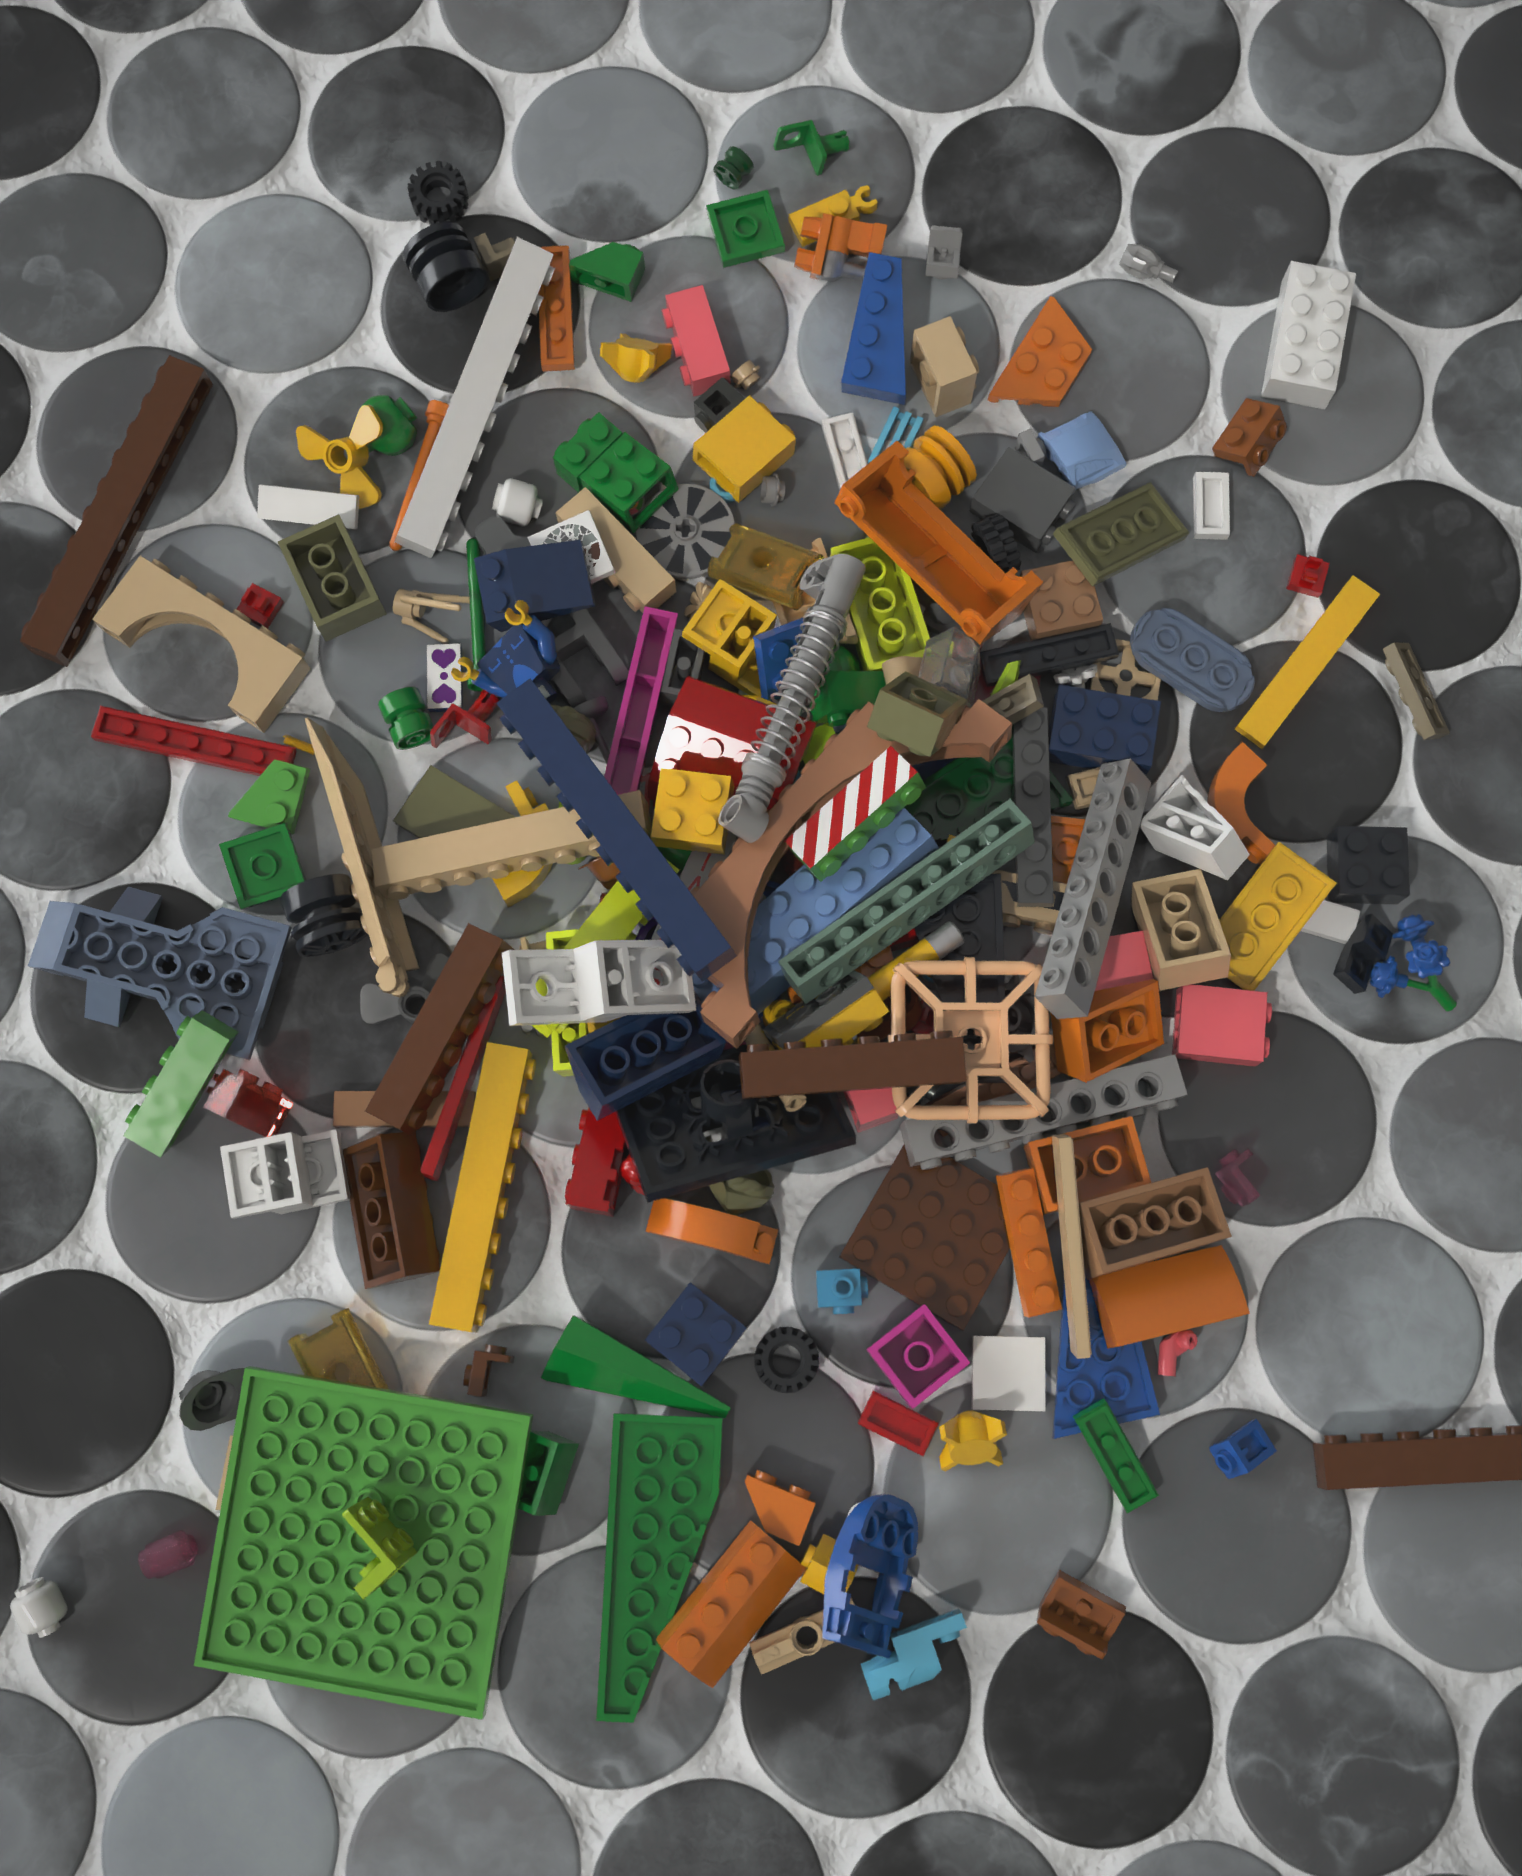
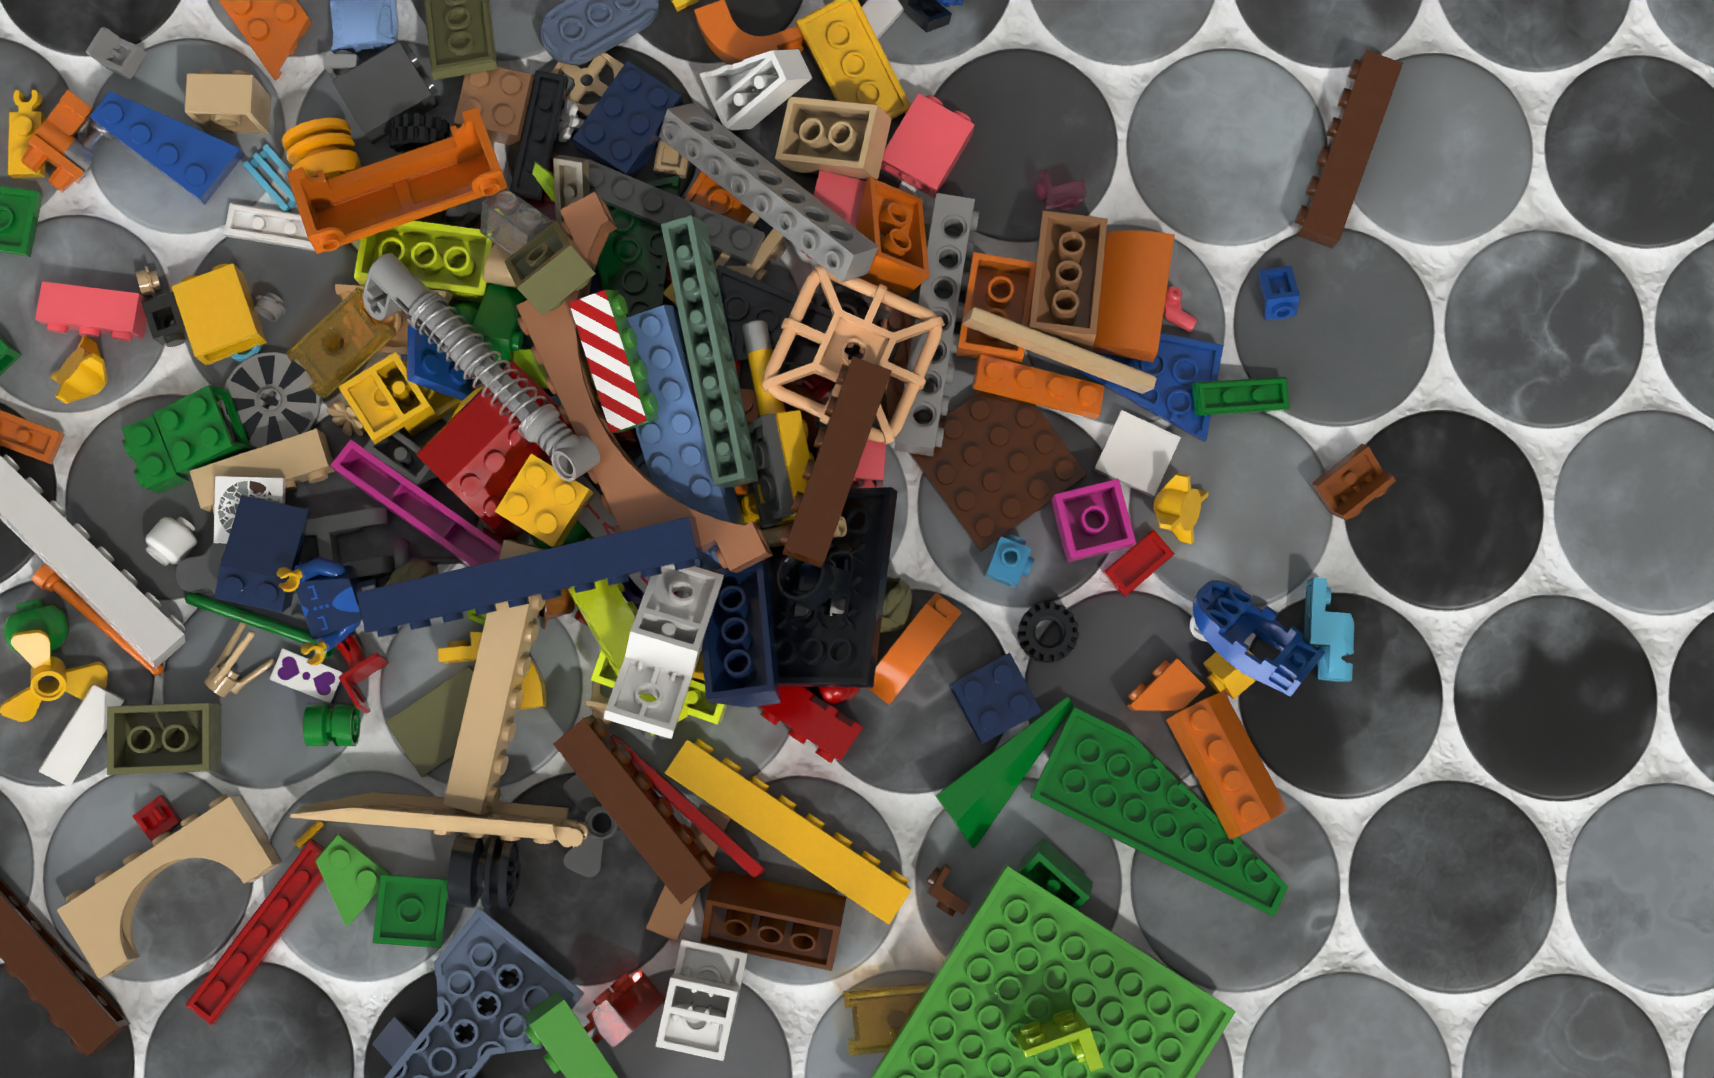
camera: 70 degrees left, 5 degrees up
(782, 1645) = (1278, 736): tan piece -> none

